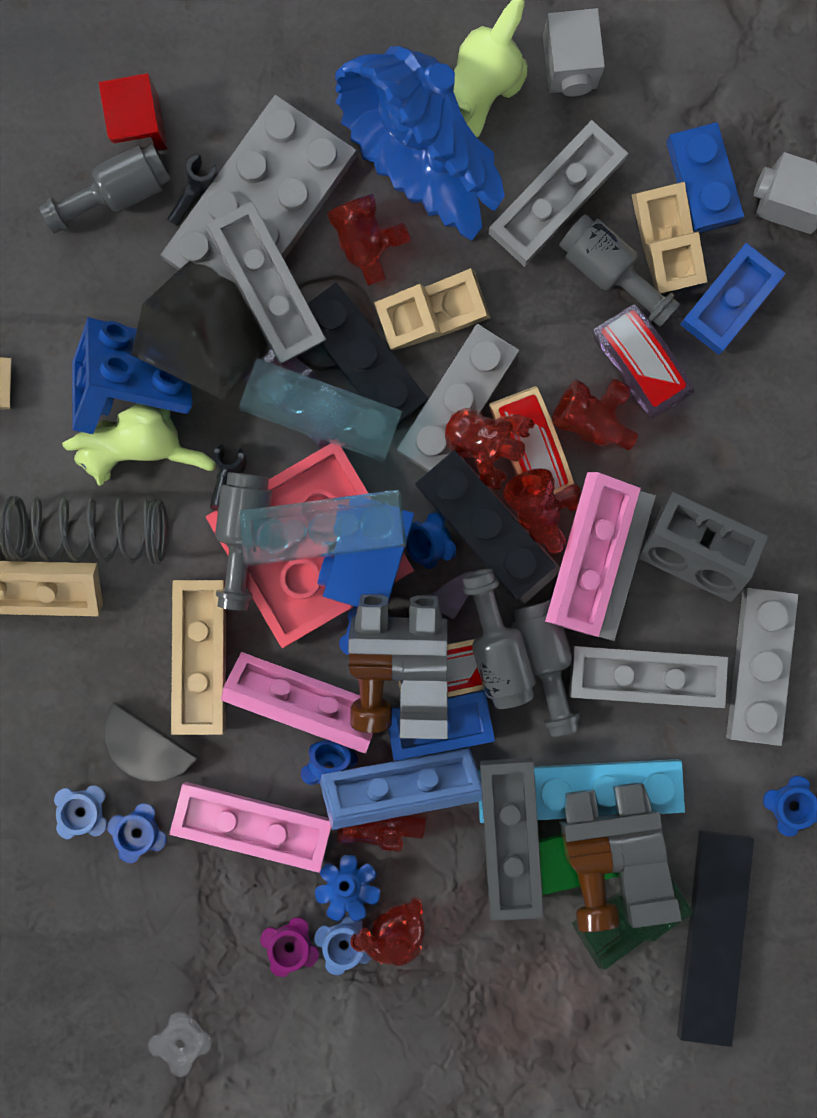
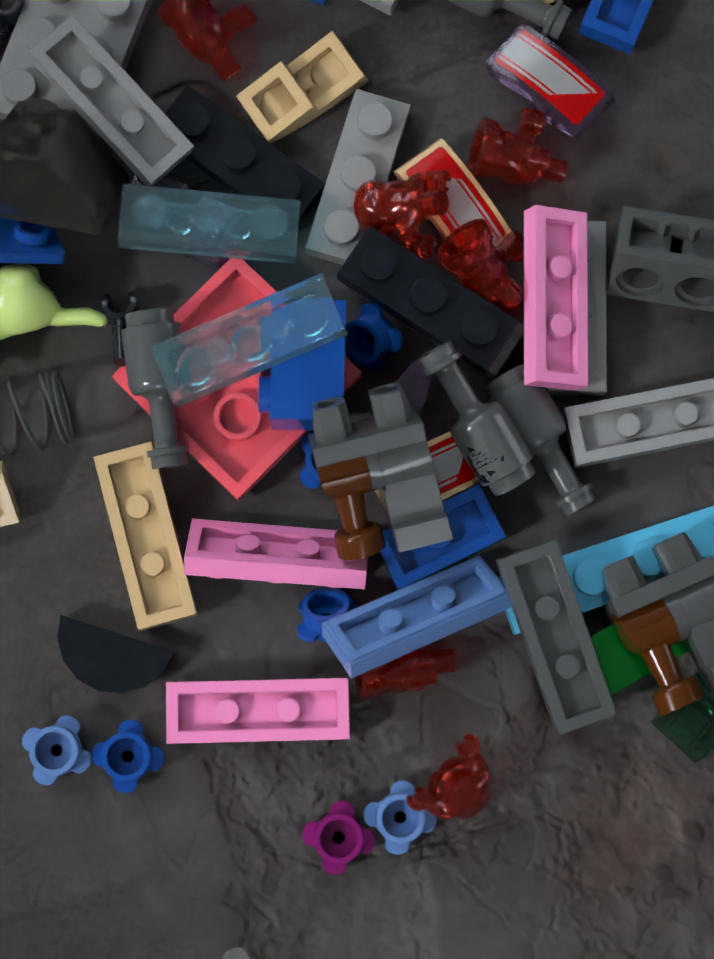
camera: 20 degrees left, 5 degrees down
(357, 894) = (387, 762): blue plant -> none

